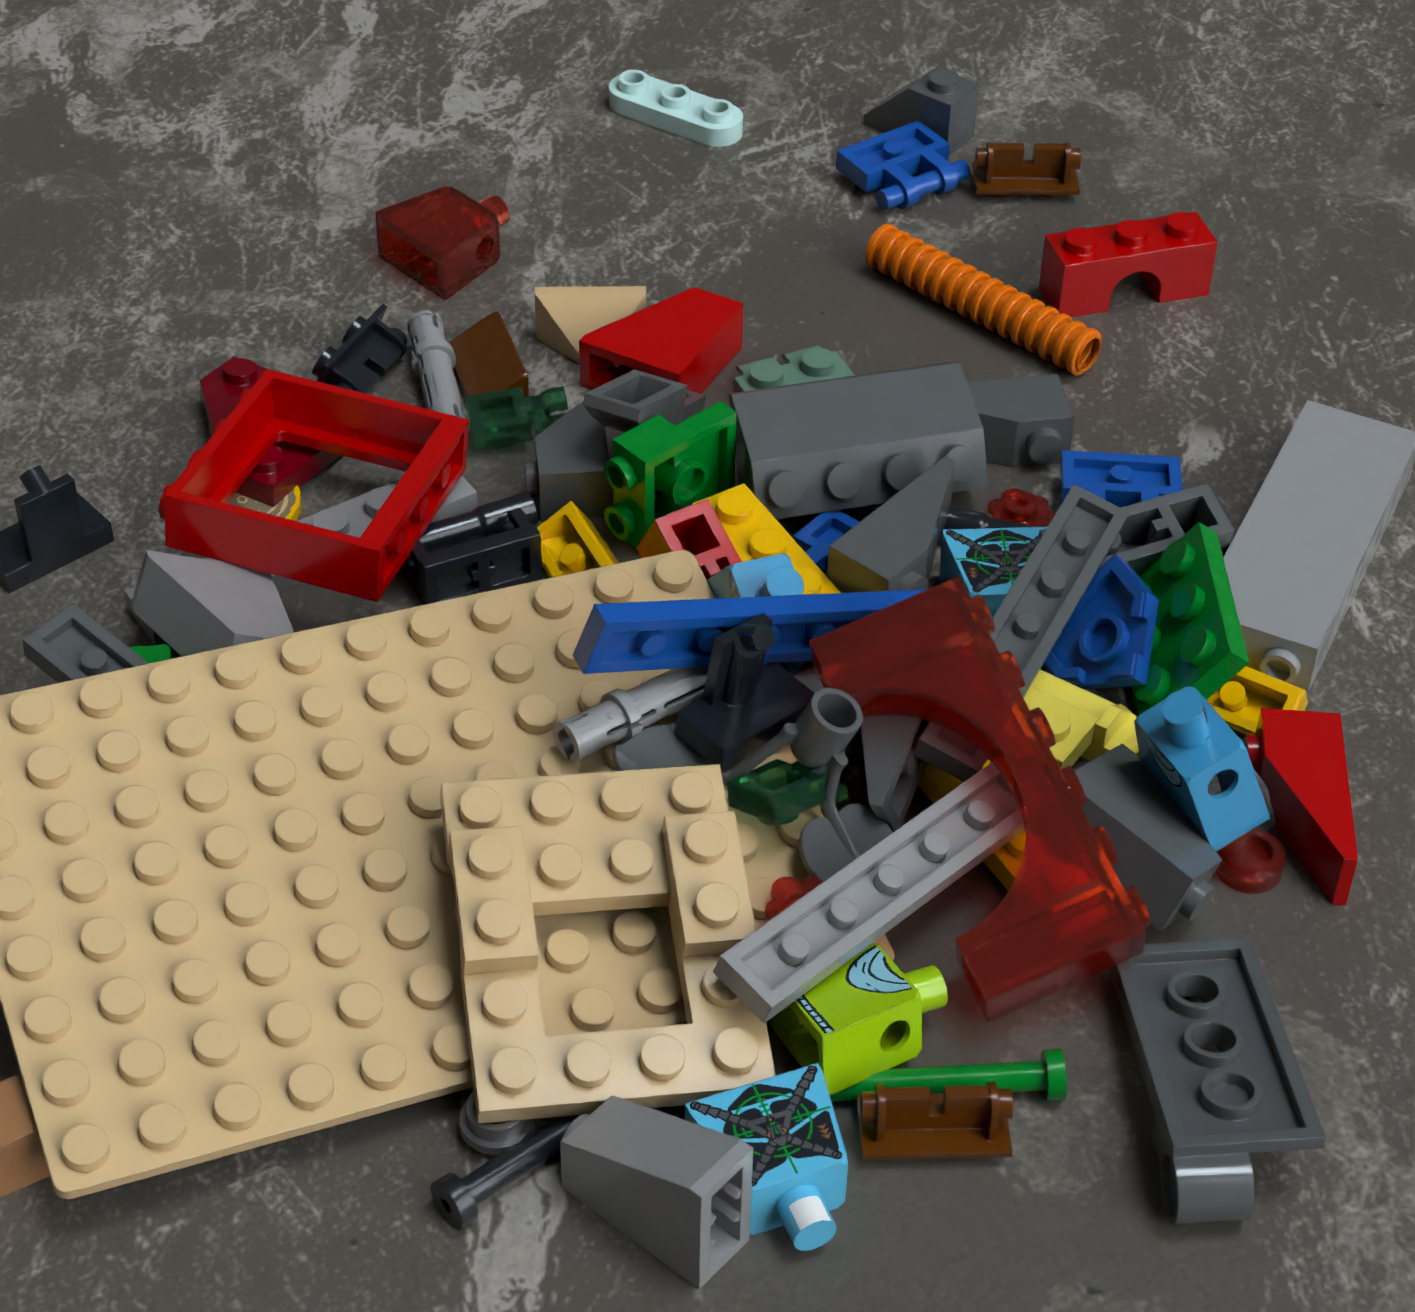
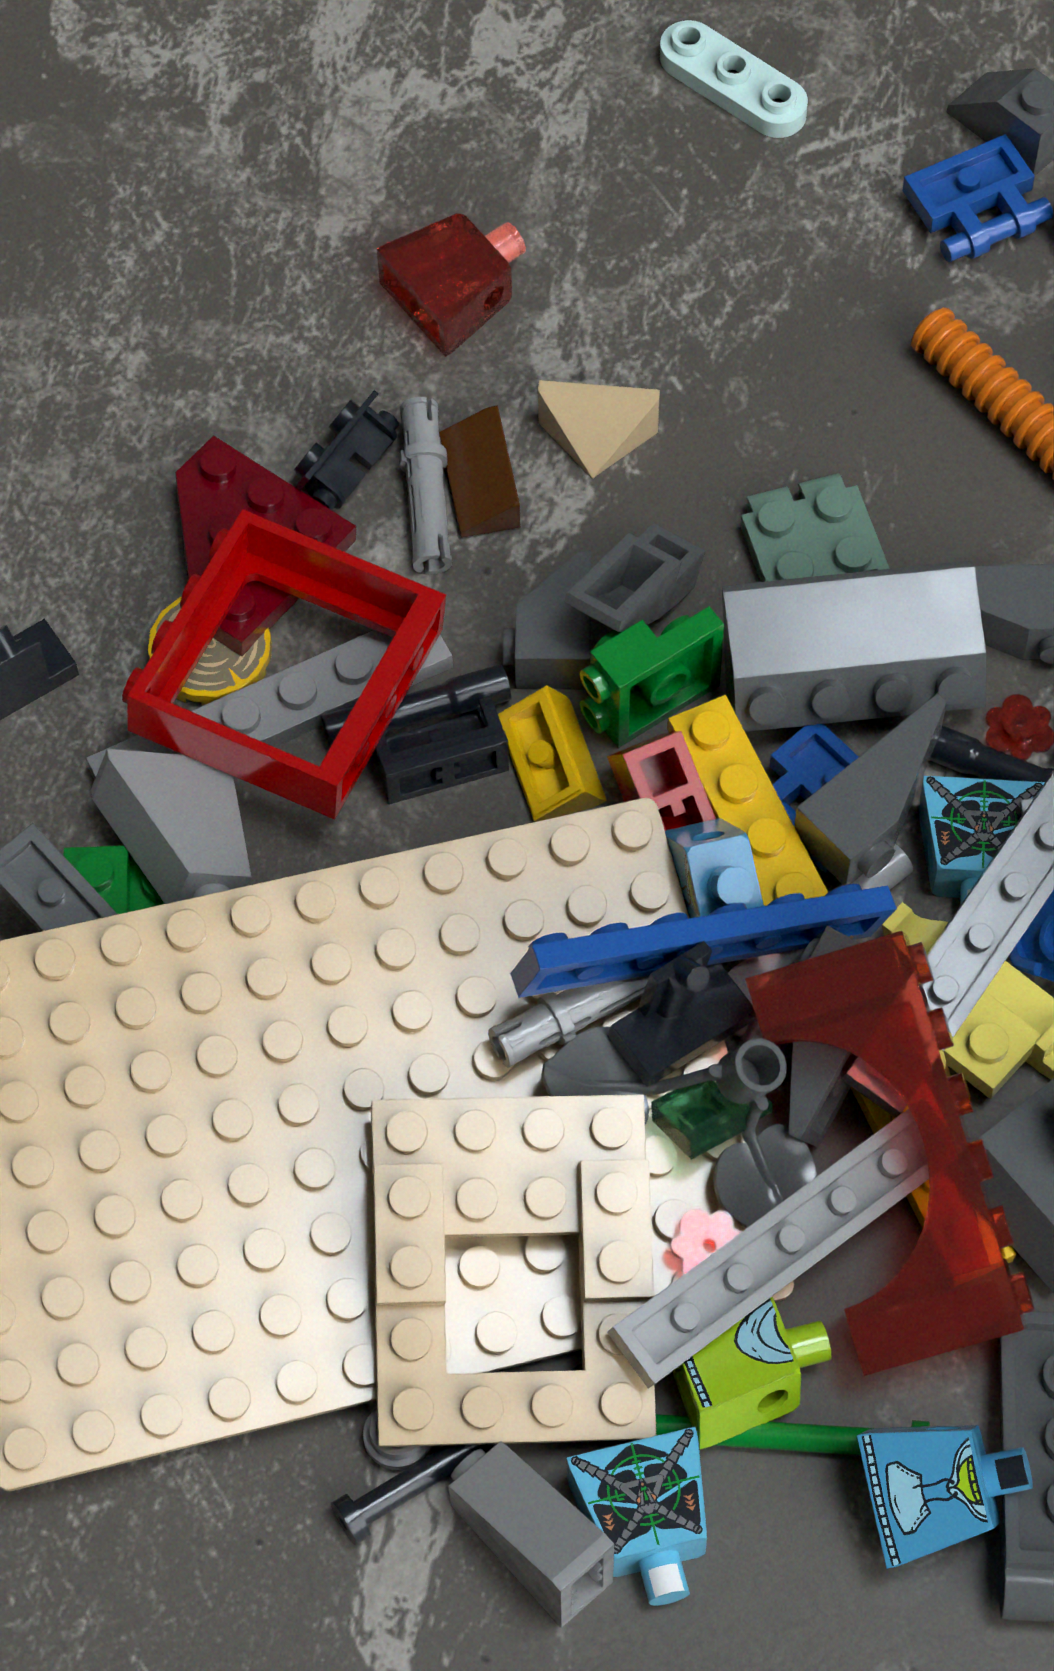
camera: 10 degrees right, 20 degrees up
(508, 416) = (491, 552): clear green plate -> none
(675, 339) = (673, 469): red slope -> none
(935, 1125) = (797, 1486): reddish brown hinge -> none
(1084, 1090) = (936, 1486): none -> dark azure torso

